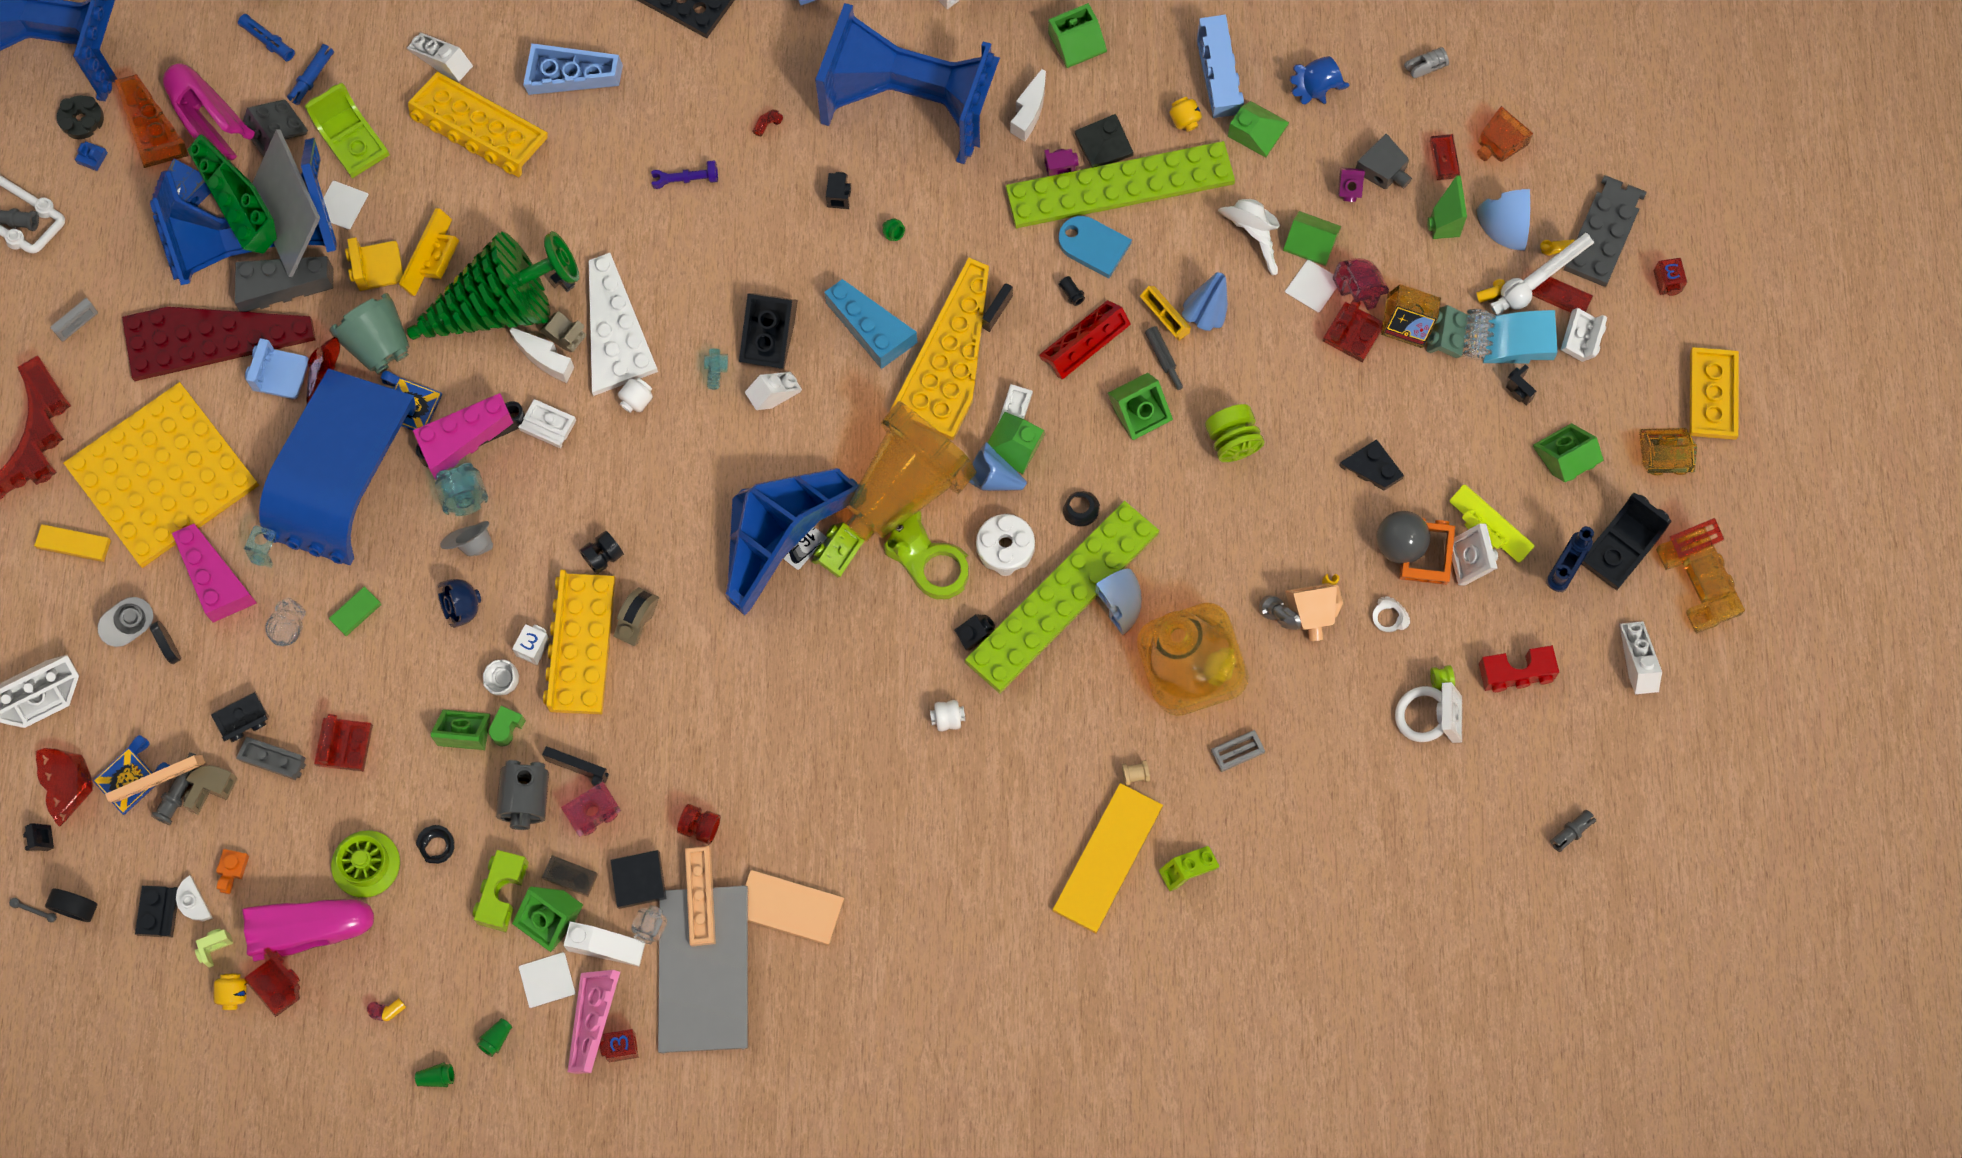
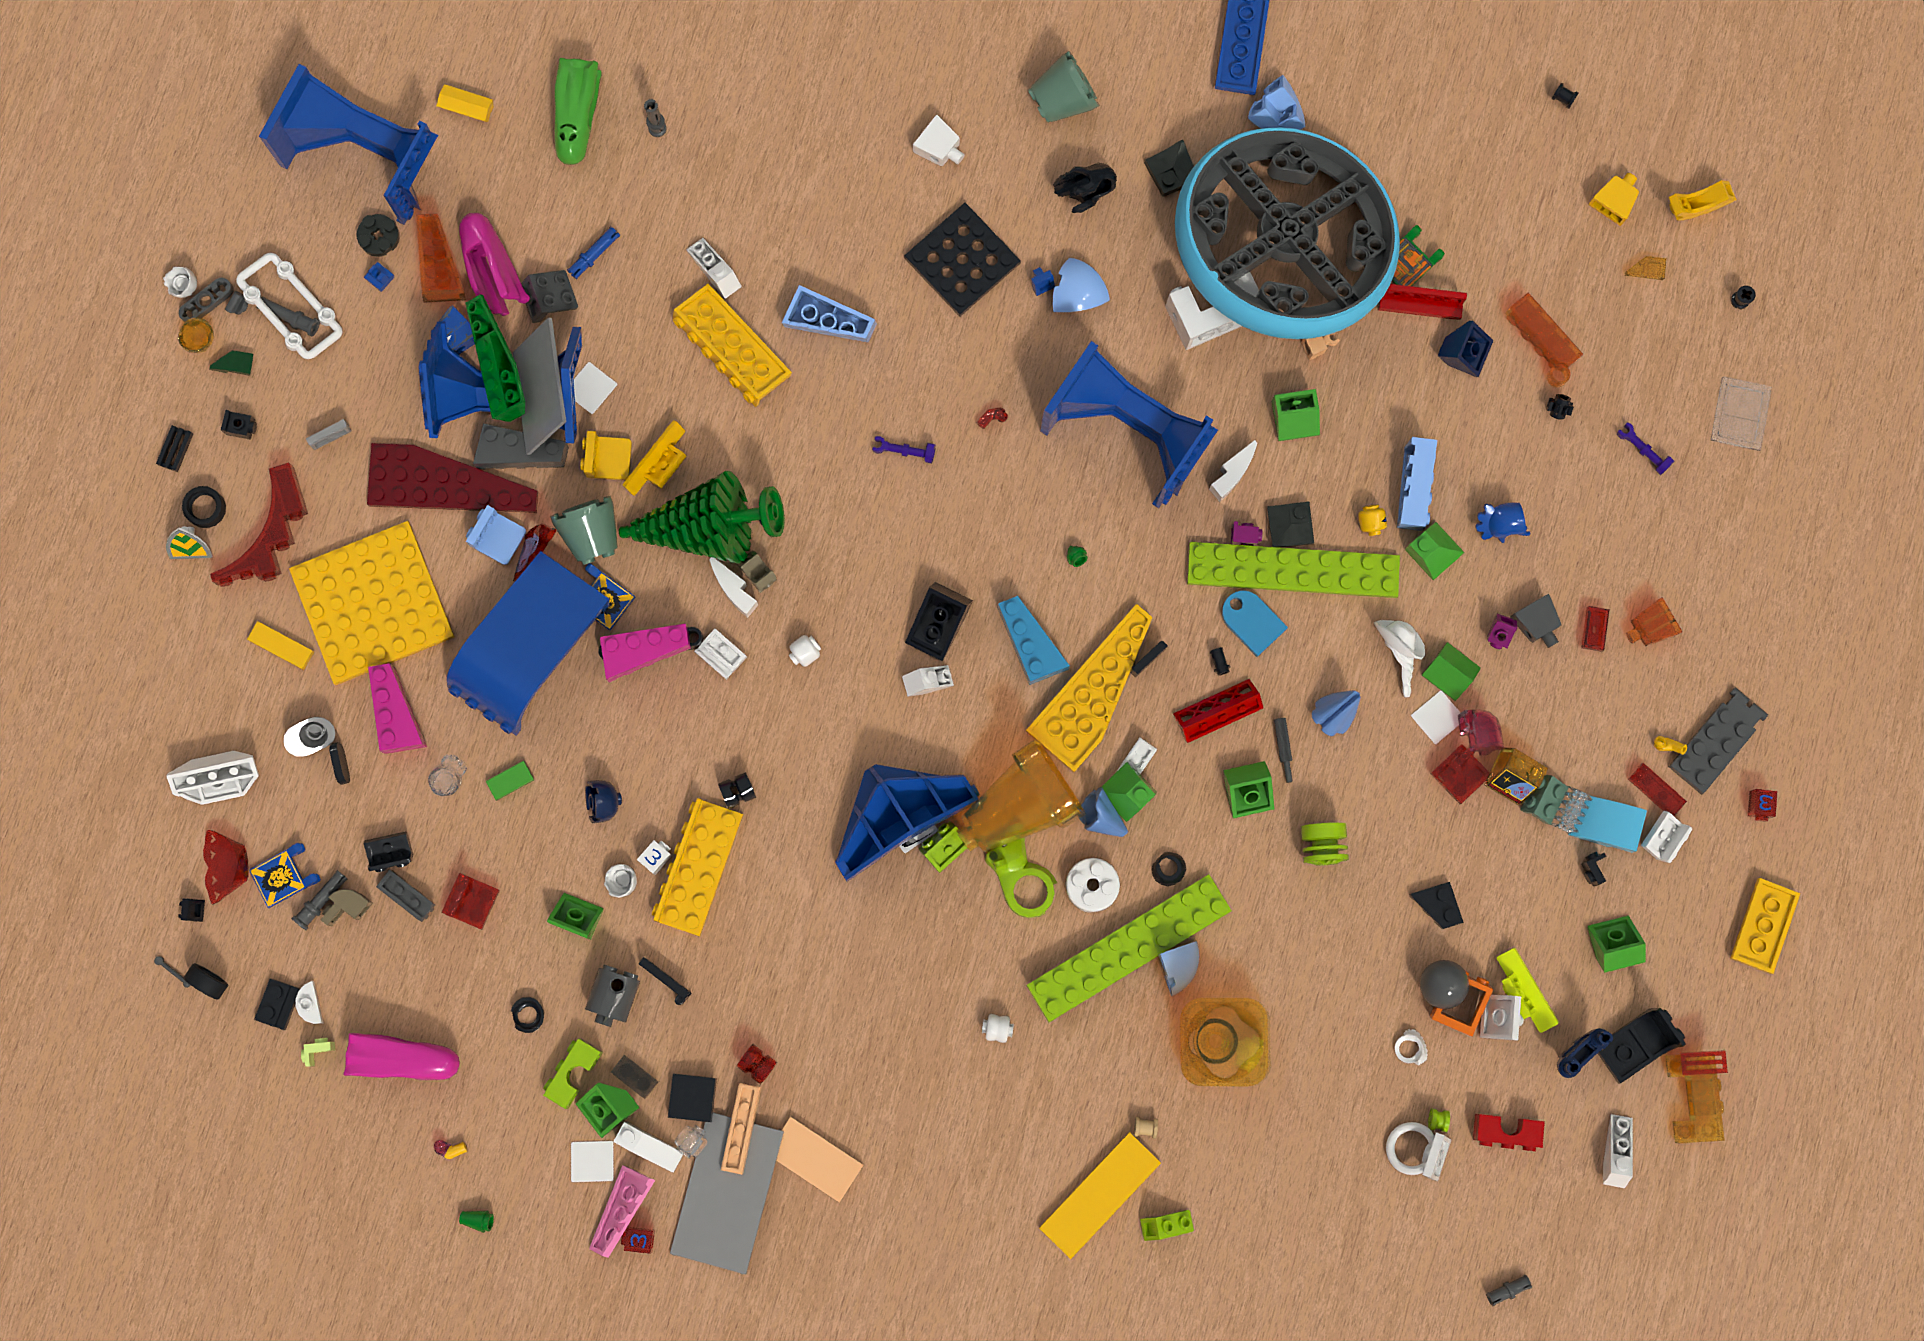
camera: 10 degrees right, 10 degrees up
(155, 778) = (302, 889): light nougat tile -> none
(230, 991) = (322, 1095): yellow head -> none
(231, 866) = (349, 982): orange plate -> none
(259, 553) = (440, 707): clear light blue bracket -> none
(274, 983) = (359, 1101): clear red bracket -> none
(283, 50) = (563, 205): blue pin -> none
(346, 130) = (612, 321): lime bracket -> none
(365, 864) = (463, 1013): lime piece -> none
(460, 490) = (629, 697): clear light blue brick -> none
(470, 540) = (624, 743): light grey piece -> none
(494, 1037) = (535, 1201): green cone -> none
(504, 724) = (612, 923): bright green leg -> none
(596, 797) = (654, 1024): clear pink brick -> none
(616, 337) = (802, 591): white wing -> none
(633, 615) = (751, 857): dark tan brick -> none
(715, 364) = (884, 640): clear light blue plate -> none
(838, 191) = (1037, 504): black brick -> none
(975, 630) = (1044, 957): black bracket -> none
(1168, 310) = (1300, 705): yellow piece -> none
(1219, 759) = (1238, 1132): light grey tile -> none
(1309, 607) = (1343, 1022): light nougat torso -> none
(1427, 62) = (1608, 531): light grey hinge -> none
(1449, 213) = (1582, 687): bright green slope -> none
(1491, 293) = (1597, 773): yellow arm -> none
(1507, 218) = (1632, 707): light blue brick -> none
(1518, 292) = (1620, 781): white piece -> none
(1668, 451) = (1706, 968): clear yellow slope -> none

